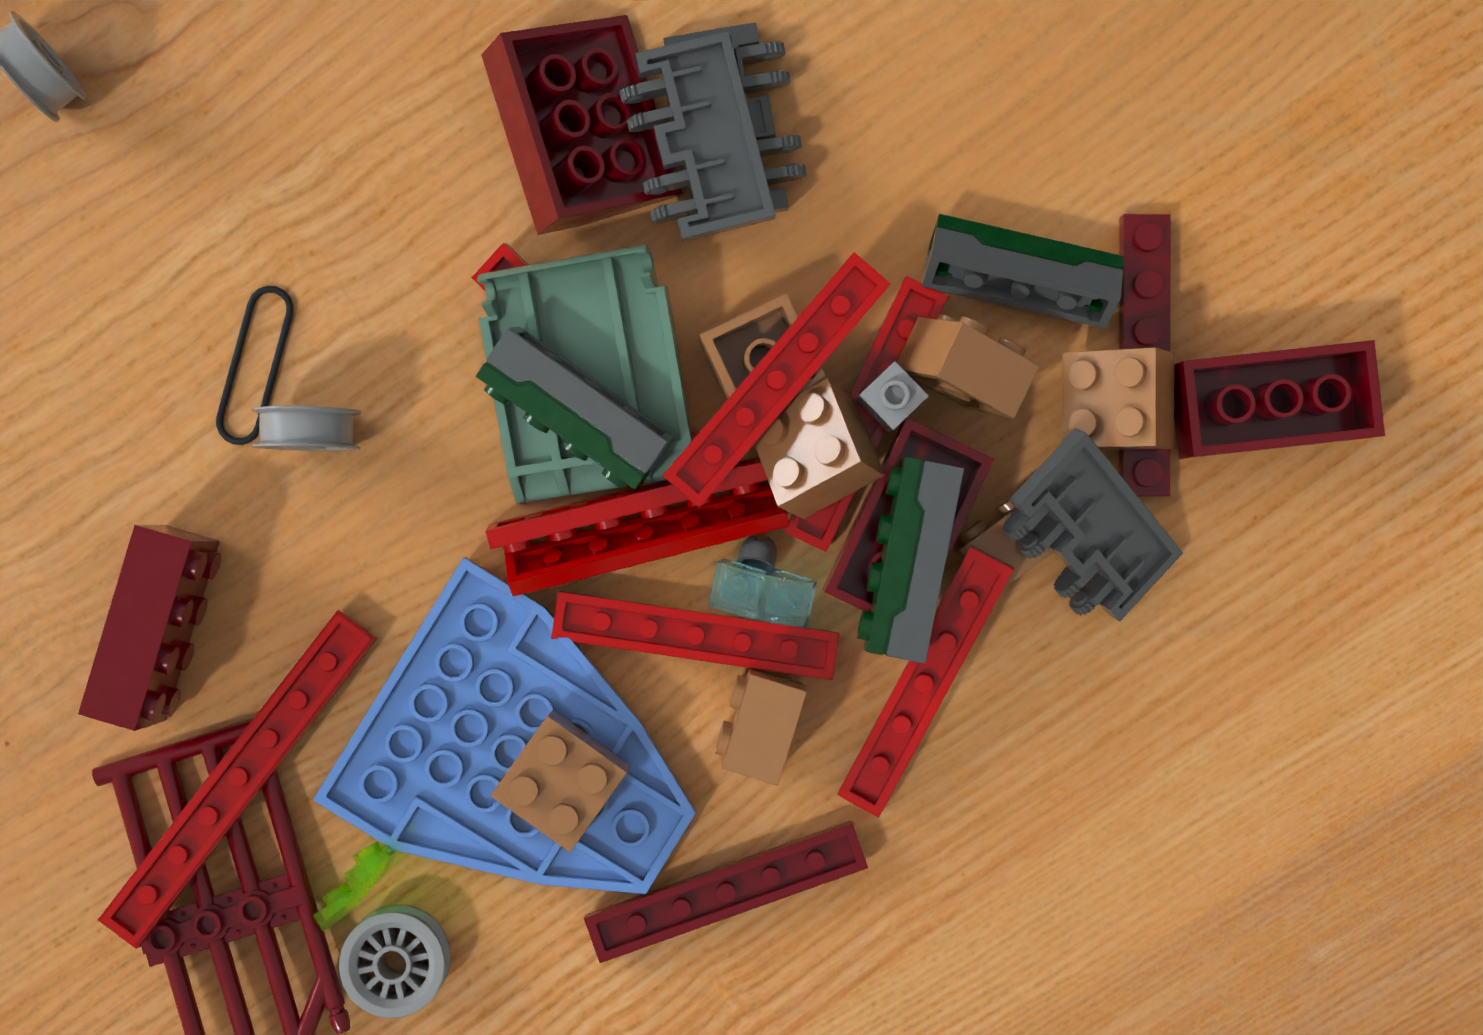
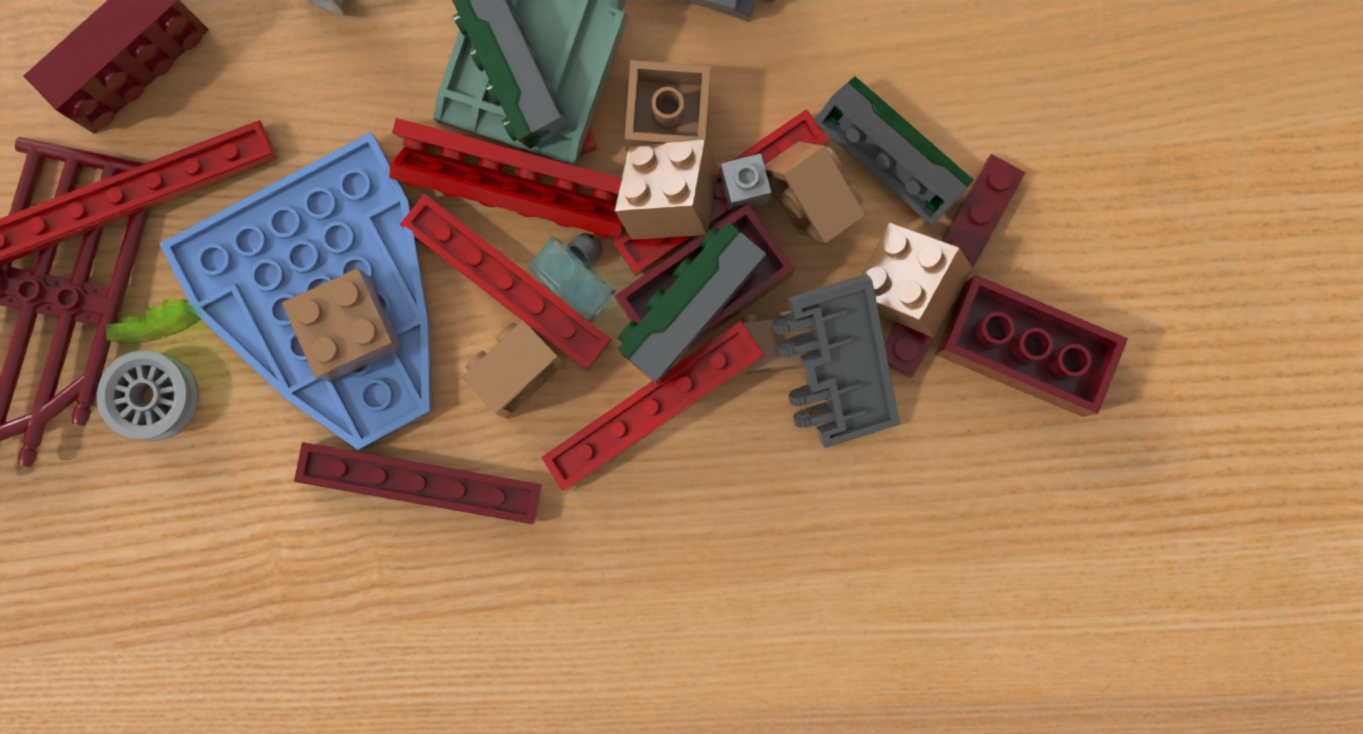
camera: 30 degrees right, 5 degrees down
(776, 379) = (666, 119): red plate -> none

